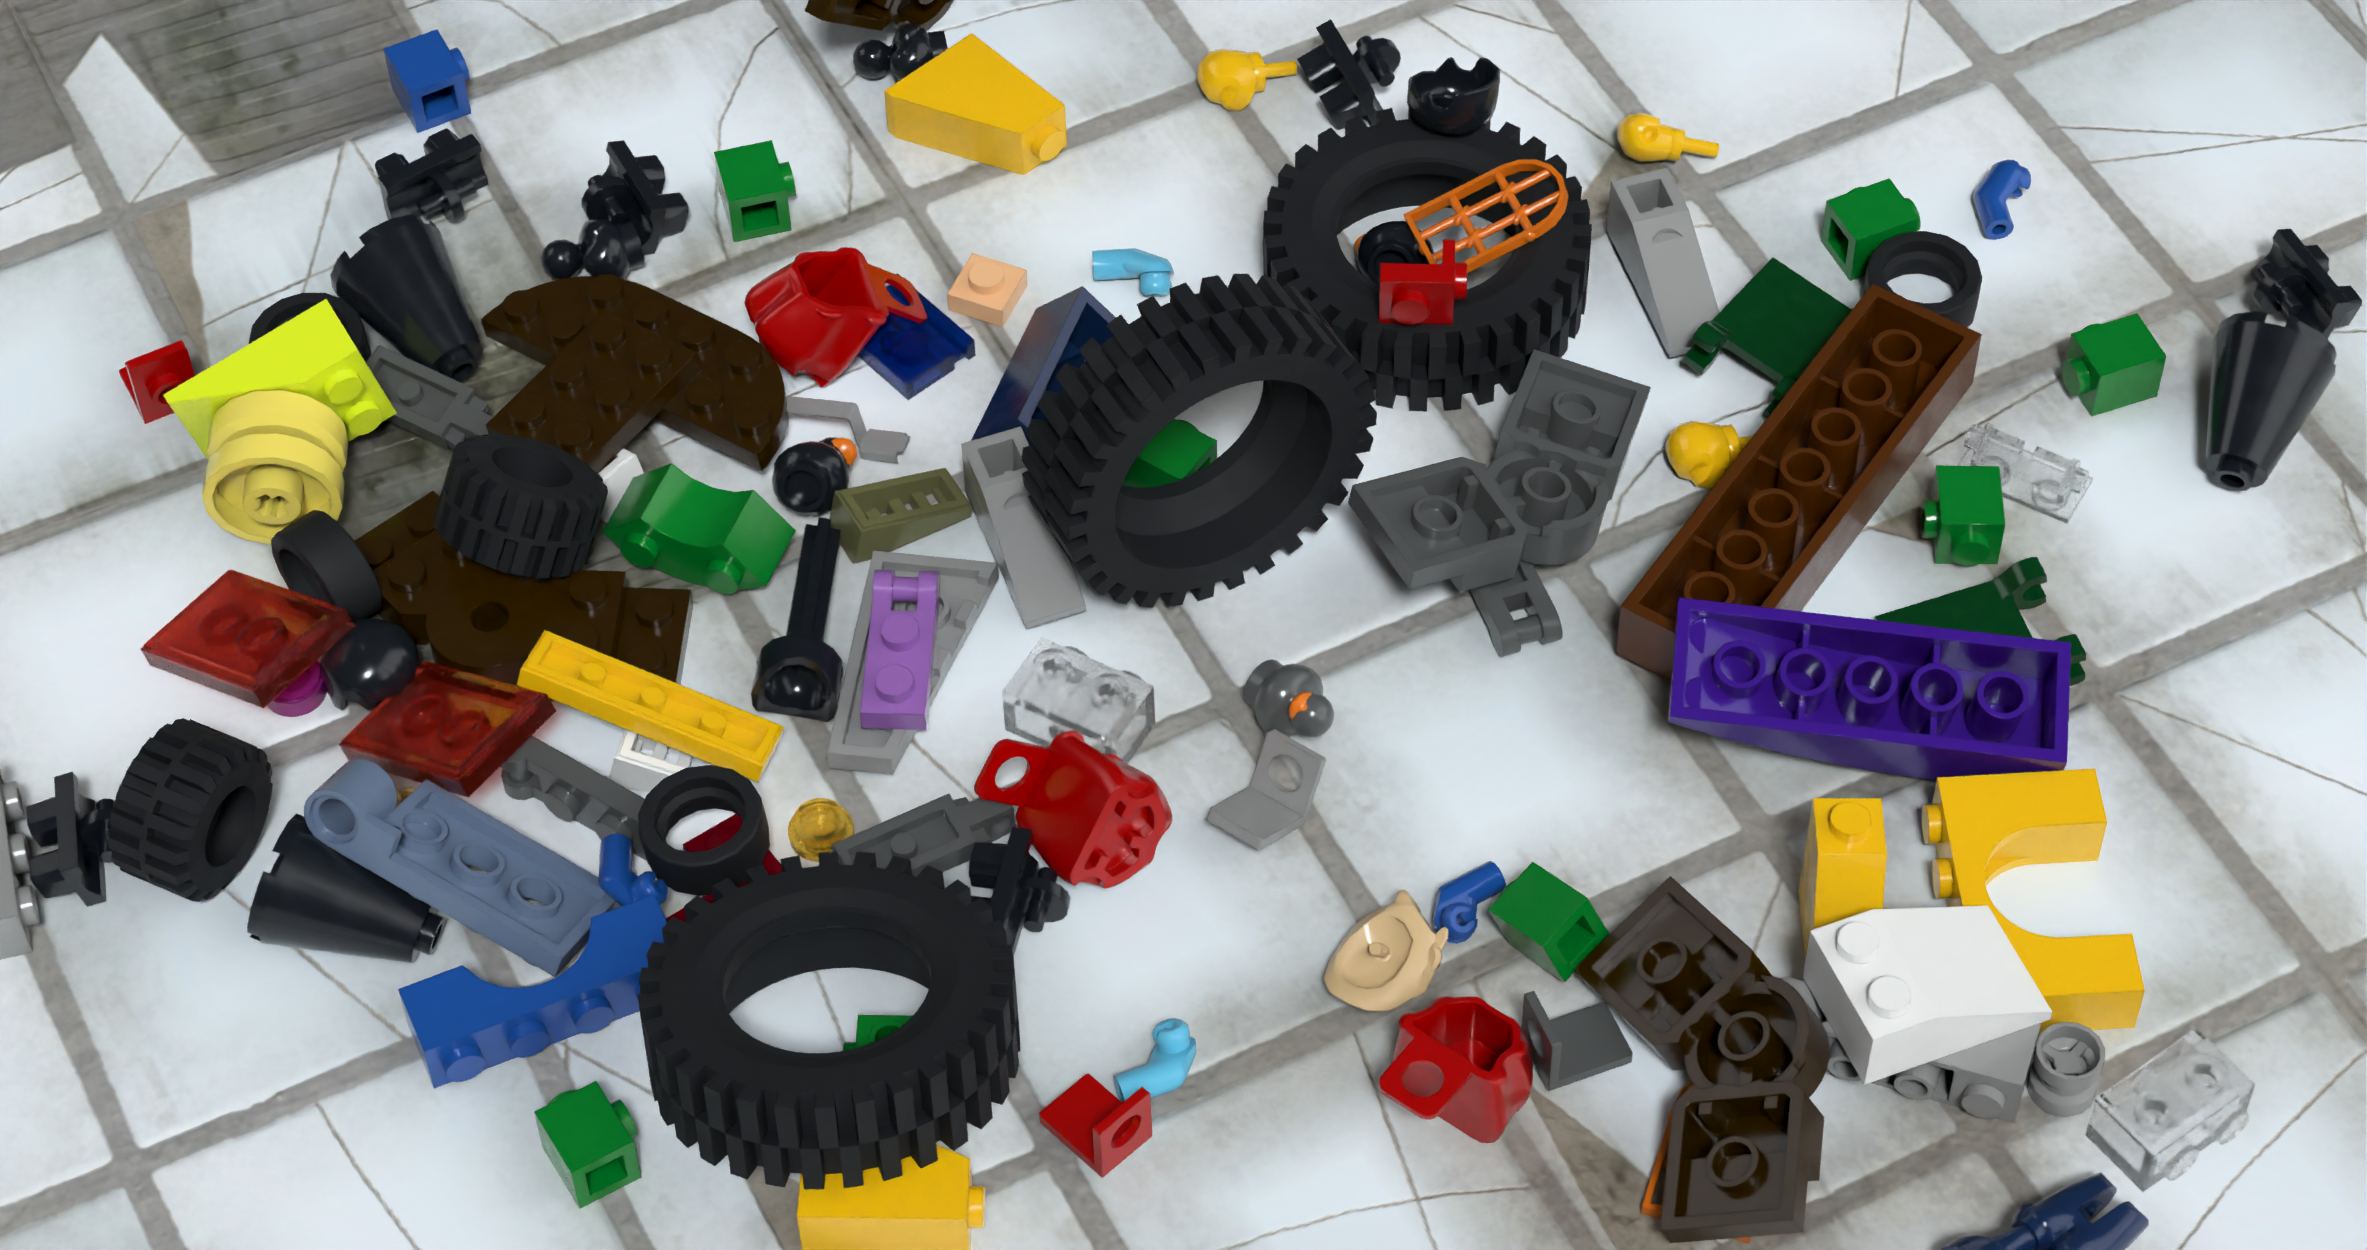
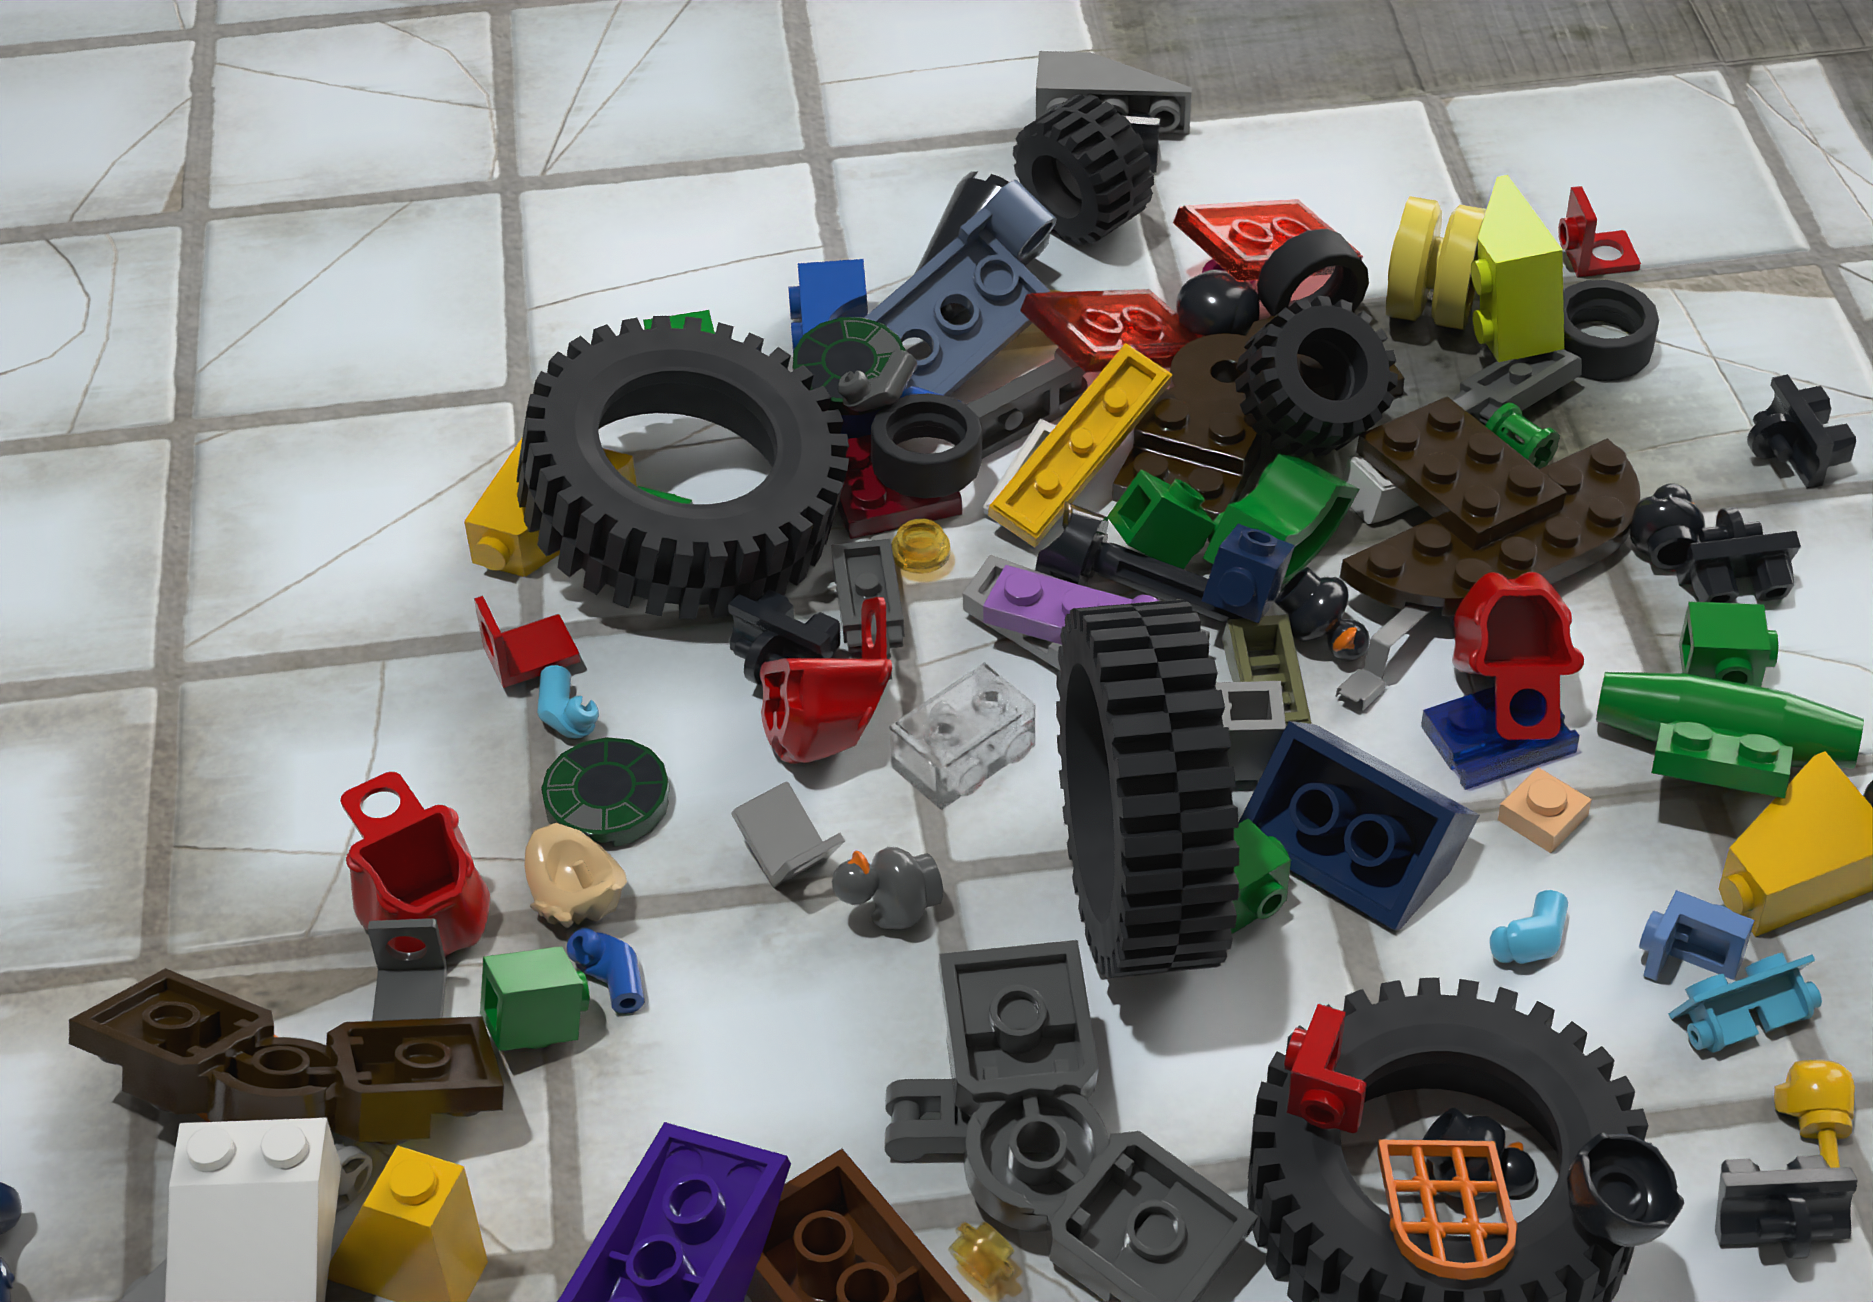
camera: 110 degrees right, 5 degrees down
(411, 295) = (1626, 383): black cone -> none
(504, 376) = (1539, 443): none -> green bush
(608, 918) = (843, 347): none -> tile
(662, 858) = (886, 389): none -> dark grey arm
(743, 609) = (1162, 519): none -> green brick
(814, 509) = (1248, 572): none -> dark blue brick
(872, 161) = (1727, 729): none -> green plate
(1106, 174) = (1698, 934): none -> medium blue bracket
(1151, 129) = (1722, 1009): none -> medium azure hinge
(1255, 988) = (607, 790): none -> tile
(1634, 534) = (982, 1253): none -> clear yellow plate

